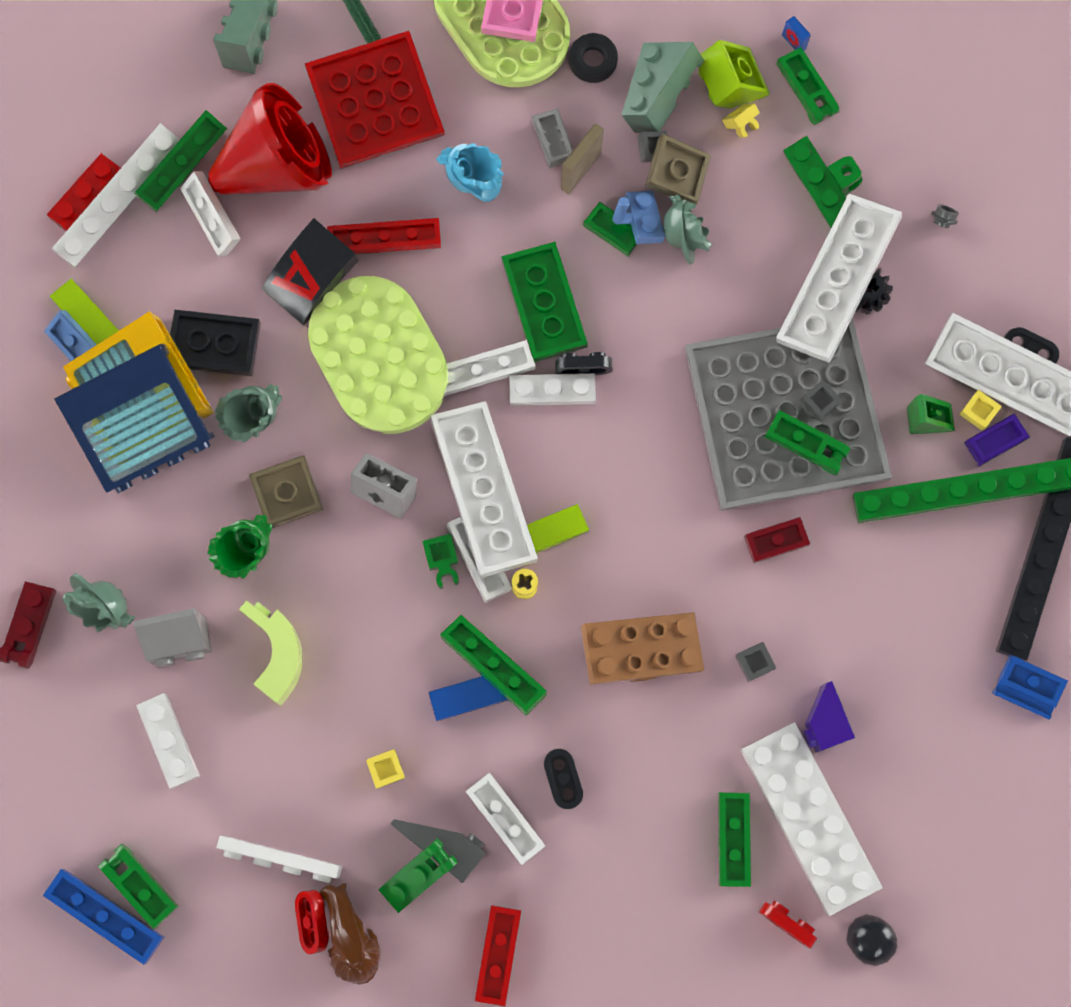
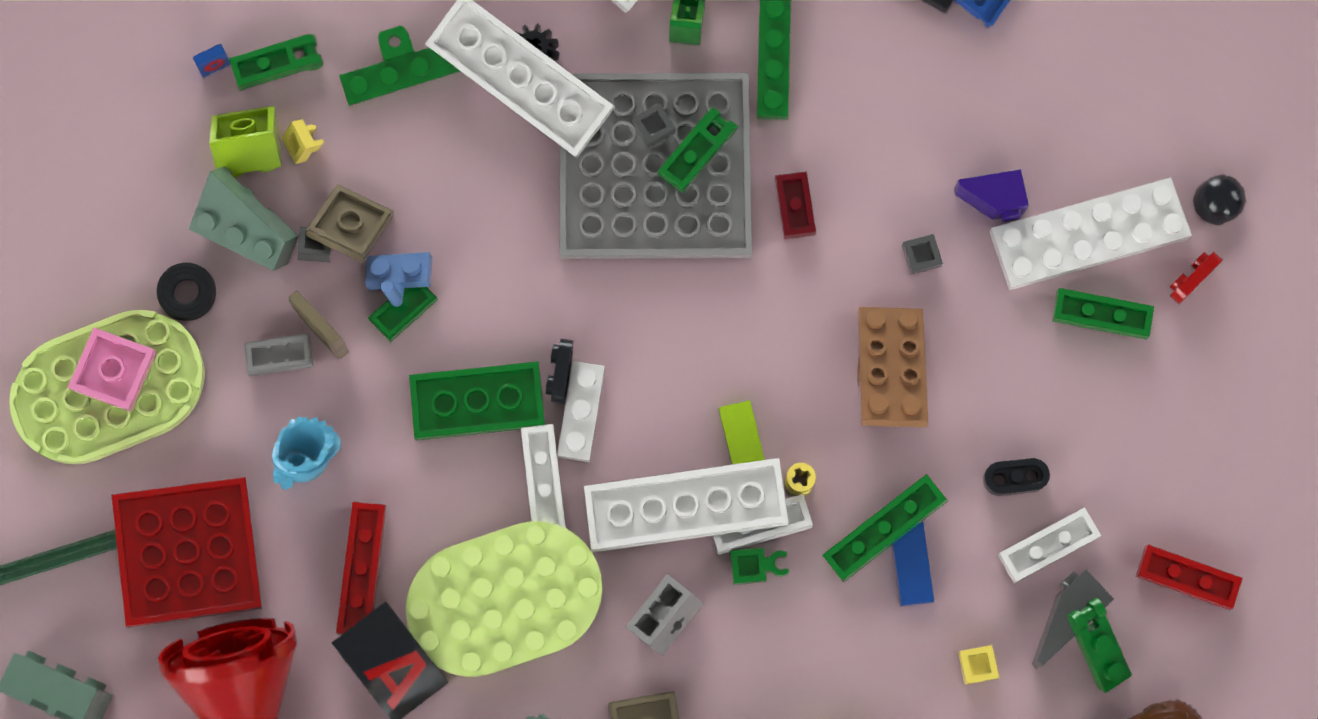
camera: 80 degrees left, 0 degrees up
(685, 229) = (423, 229): sand green hair -> none

